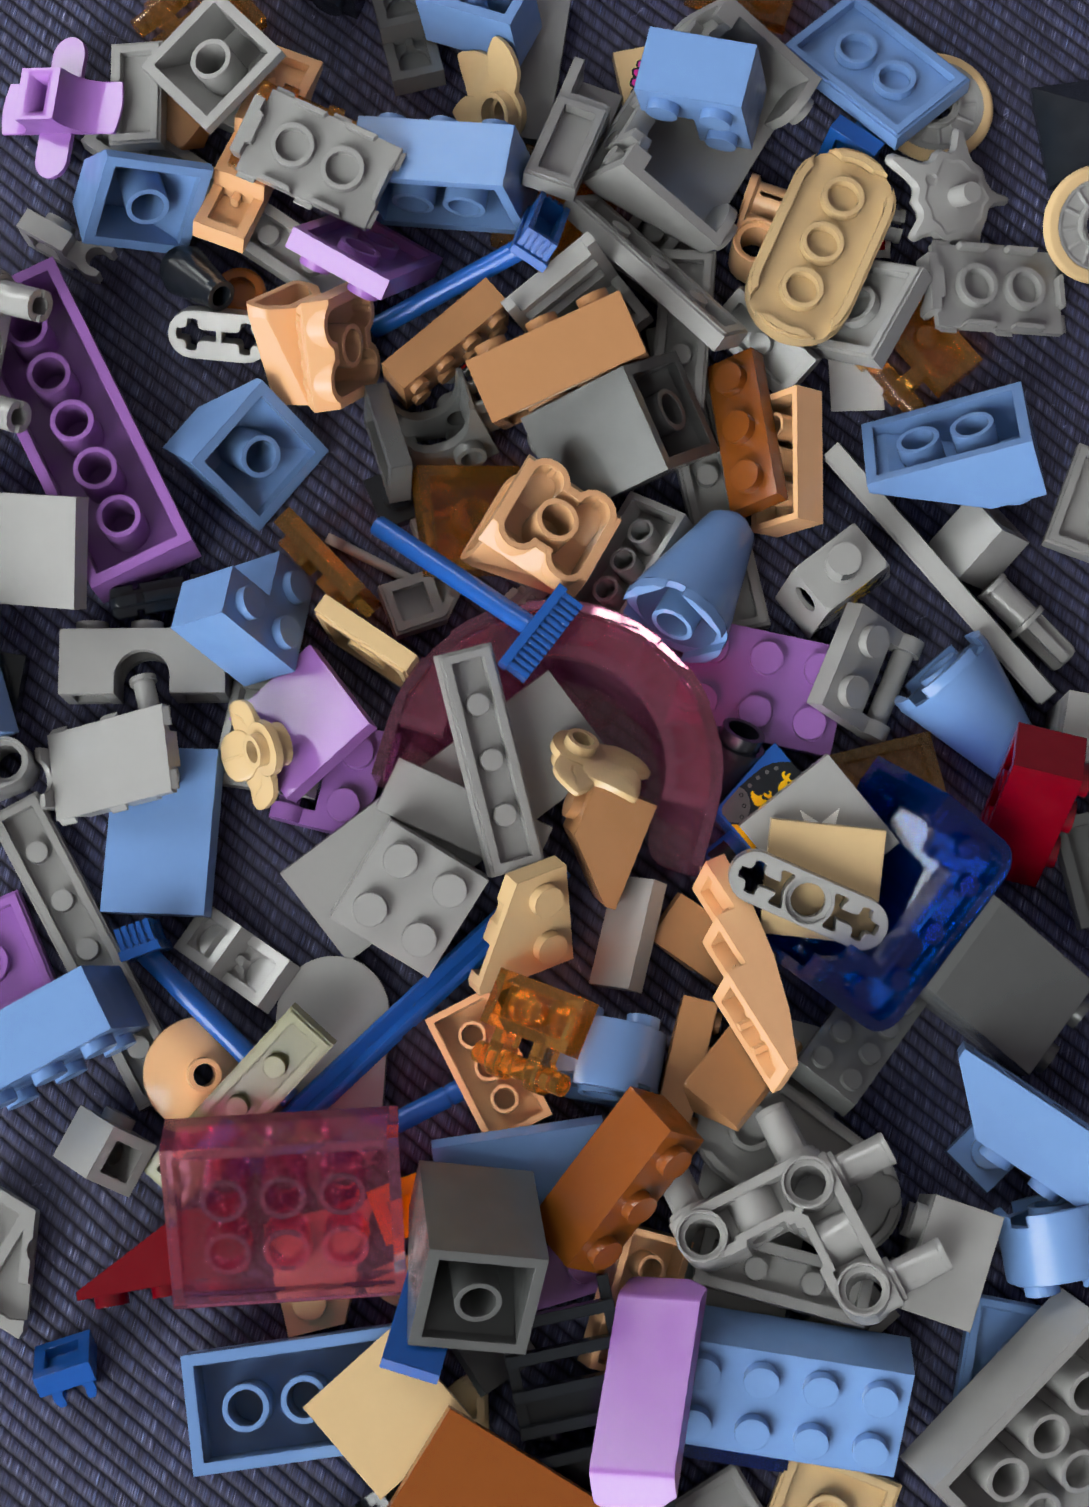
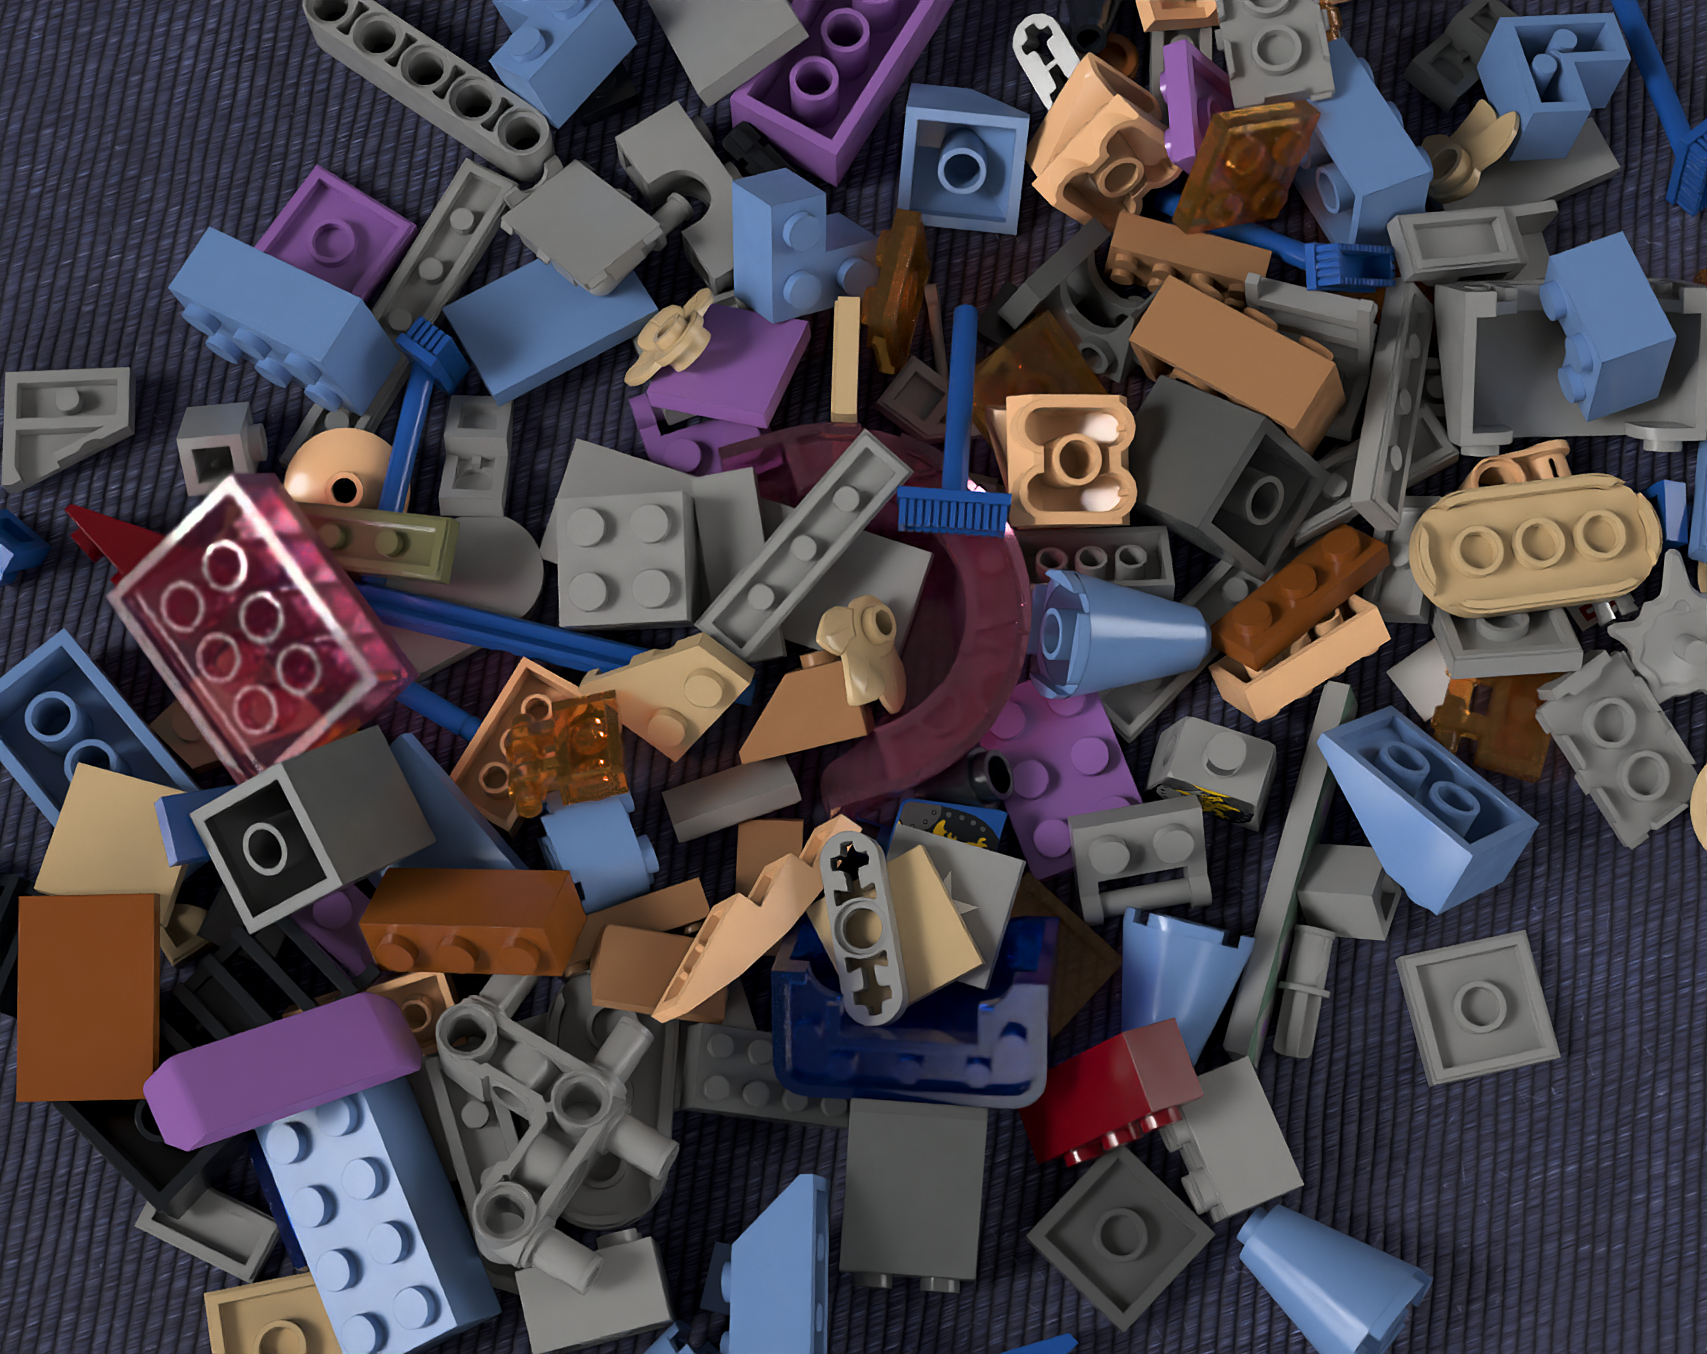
camera: 55 degrees right, 5 degrees down
(415, 251) = (1245, 166): none -> clear orange plate

